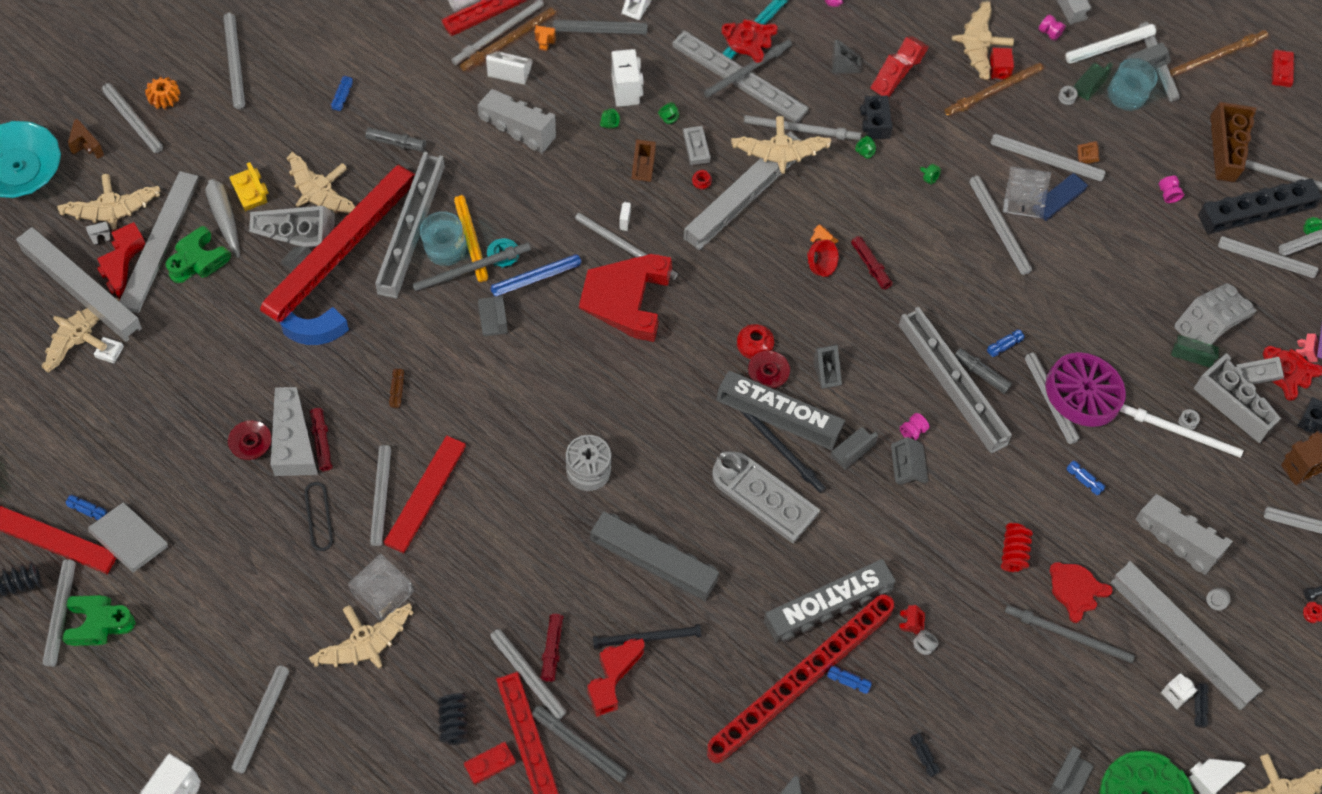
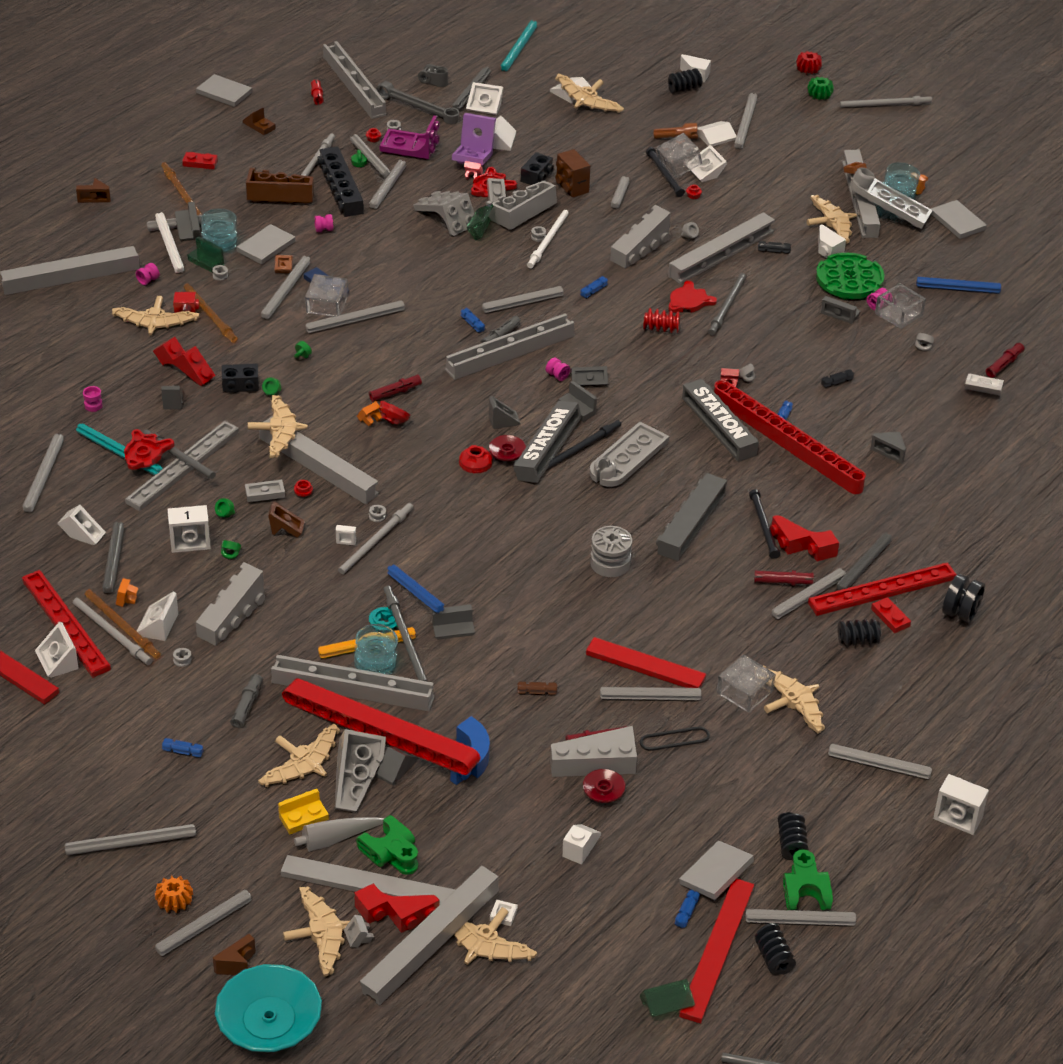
camera: 90 degrees left, 20 degrees down
(159, 614) = (792, 834): none -> black piece
(182, 416) = (579, 843): none -> white slope
(455, 88) = (182, 662): none -> light grey bush
(617, 292) = (434, 536): red wedge -> none
(668, 242) = (373, 510): none -> light grey bush
(840, 133) = (254, 403): light grey bar -> none
(1085, 390) = (519, 276): magenta piece -> none
(1127, 136) = (266, 244): none -> light grey tile
(1182, 688) = (767, 252): white brick -> none

